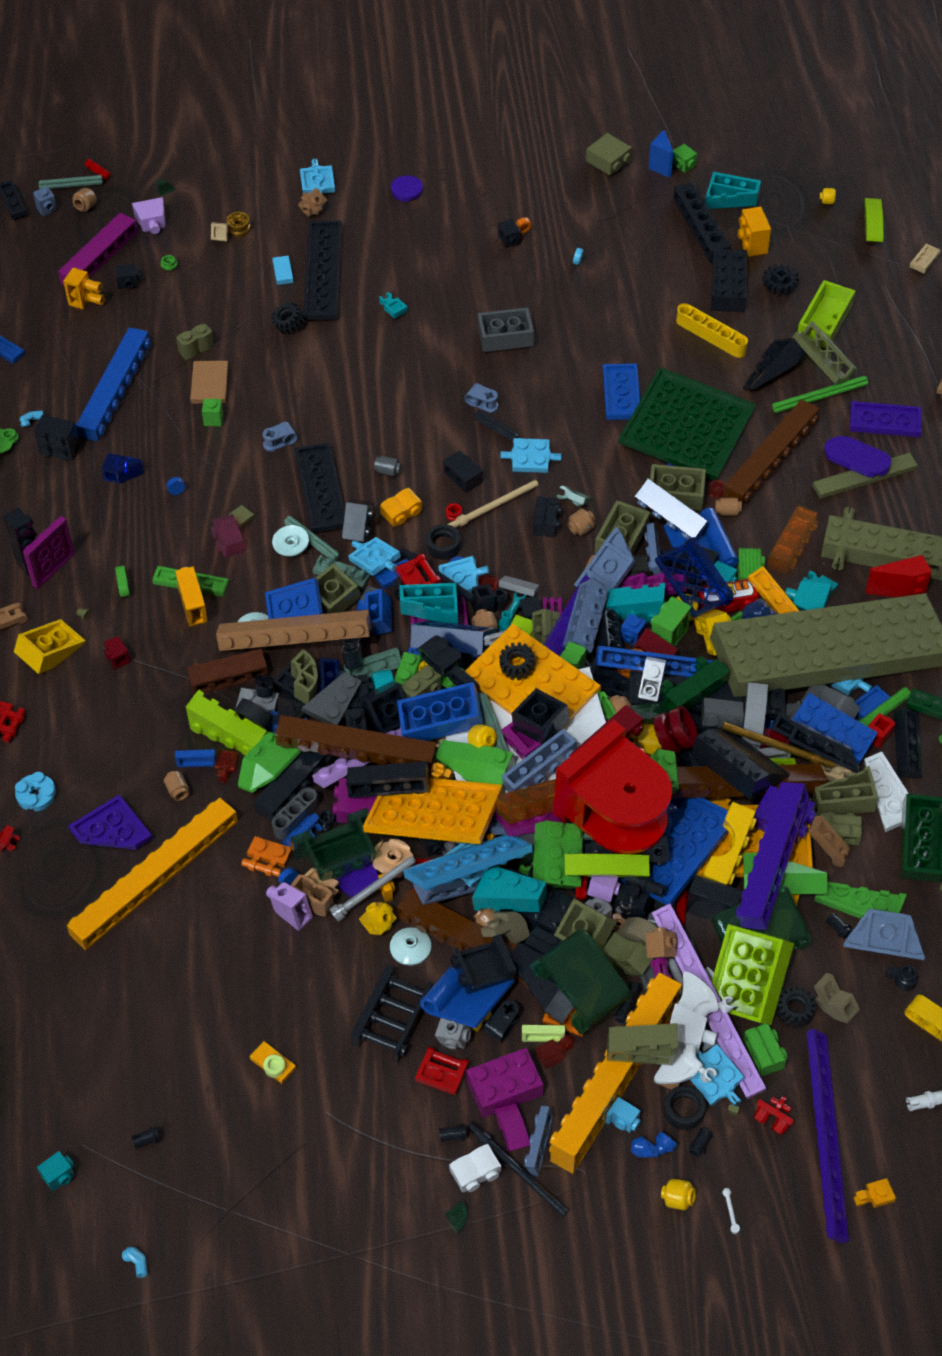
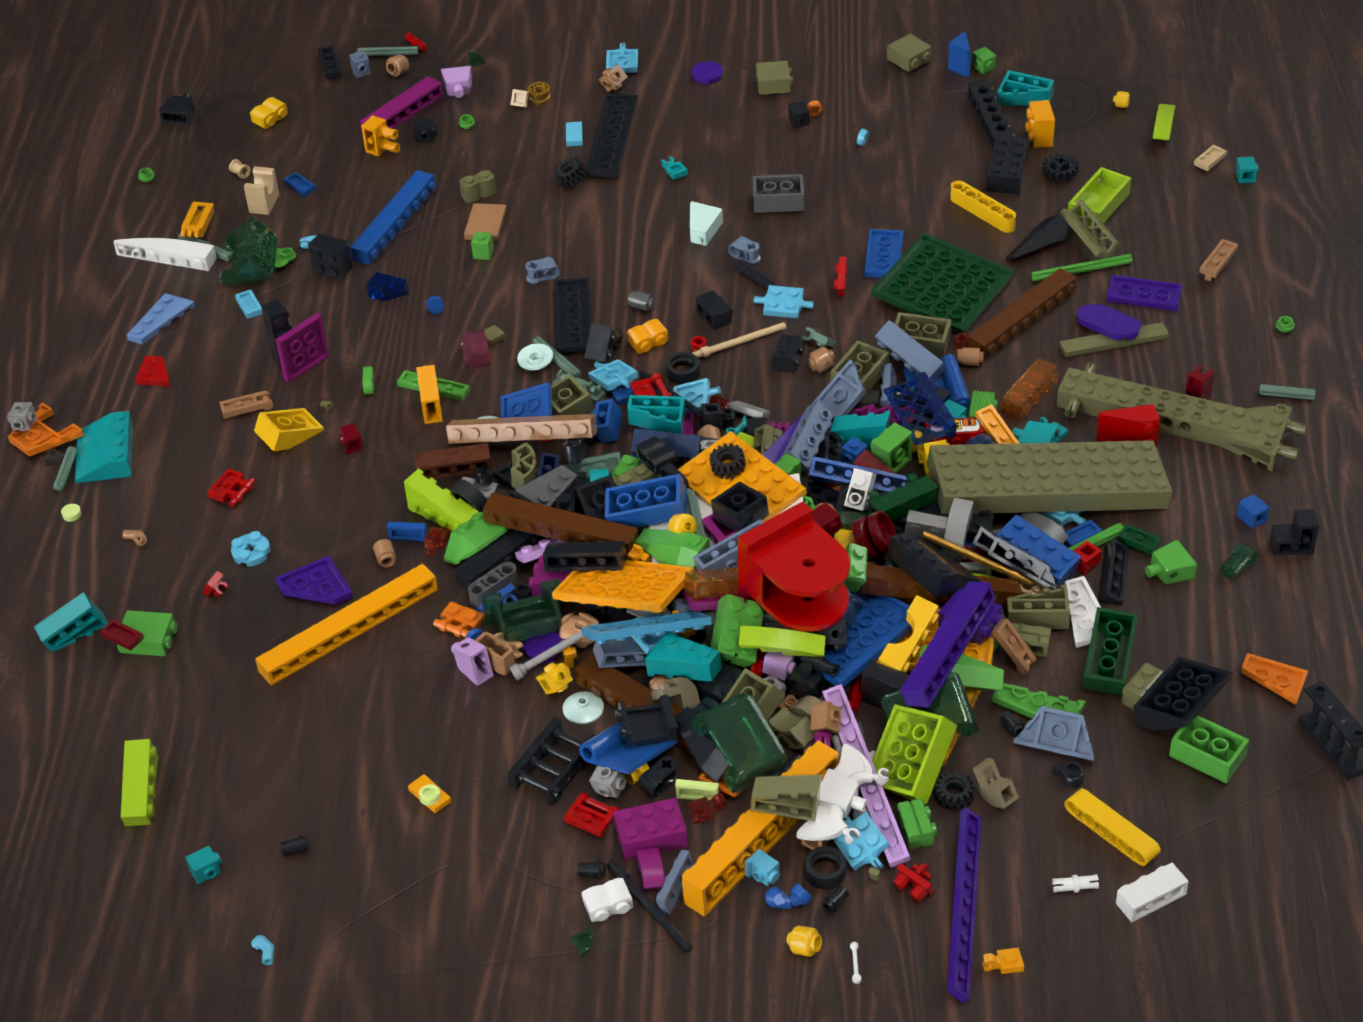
camera: 10 degrees right, 10 degrees down
(435, 368) = (704, 222): none -> light aqua slope
(476, 191) = (773, 77): none -> olive brick
(585, 430) = (842, 270): none -> red wing

